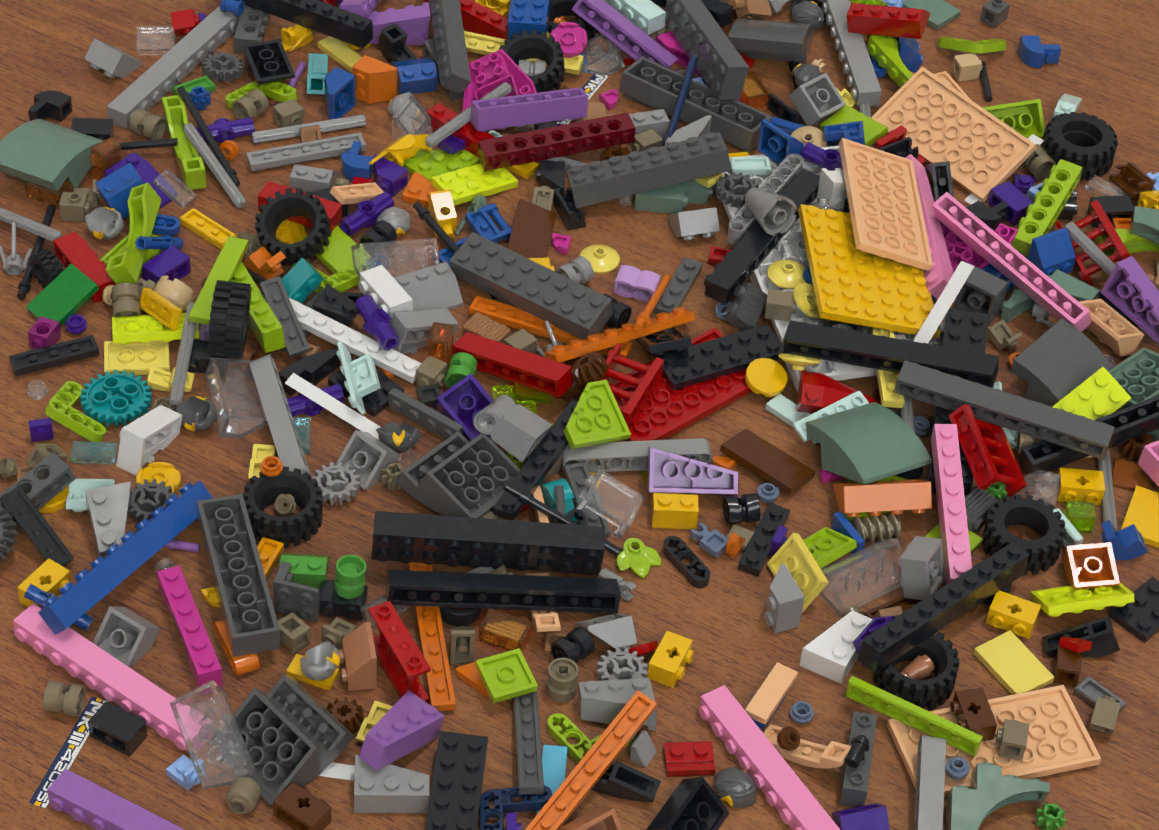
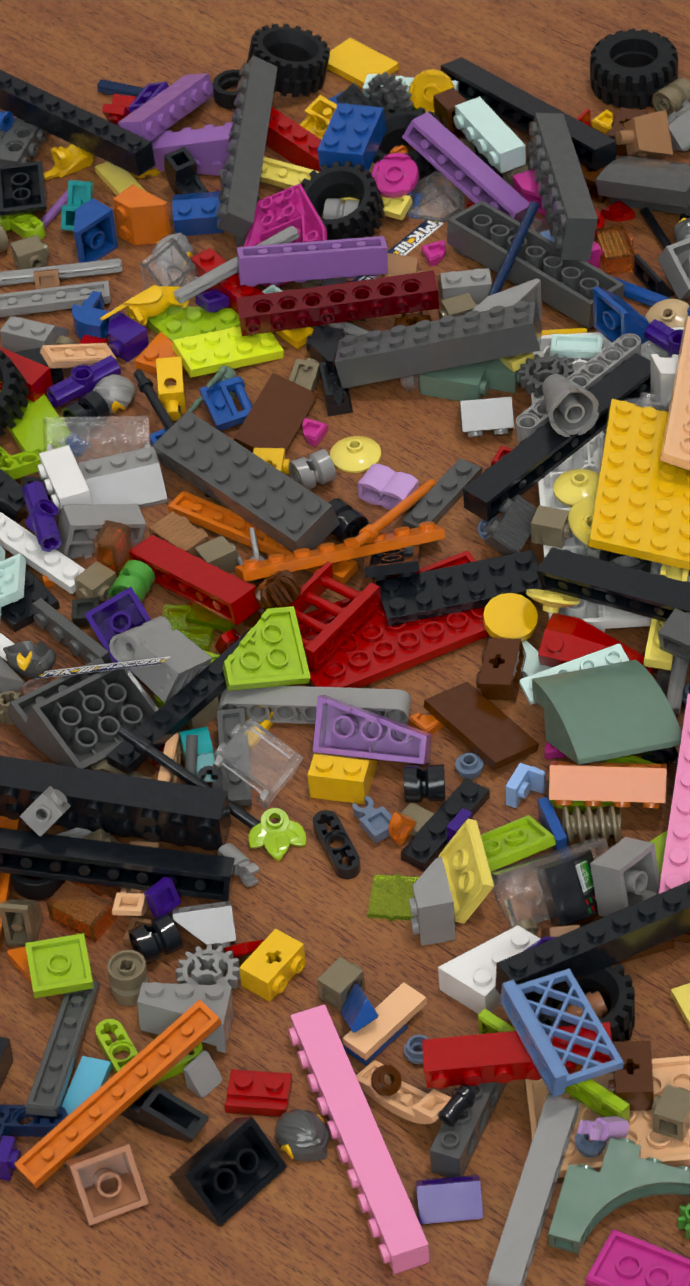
camera: 20 degrees right, 0 degrees up
(467, 554) = (45, 810): none -> light grey brick
(469, 438) = (103, 667): none -> sticker
(548, 413) = (227, 640): none -> red tile
(569, 615) = (162, 897): none -> dark purple plate
(727, 668) = (338, 982): none -> dark tan brick
(743, 598) = (391, 896): none -> clear neon green piece
(750, 685) = (358, 1009): none -> blue slope
(771, 416) = (501, 669): none -> reddish brown brick
(775, 75) = (655, 227): none -> black bar
(817, 499) = (522, 781): none -> light blue bracket
(879, 579) = (568, 888): none -> black slope
(892, 708) = (493, 1058): none -> red brick
(911, 692) = (539, 1045): none -> medium blue fence
(970, 756) = (604, 1128): none -> lavender bar

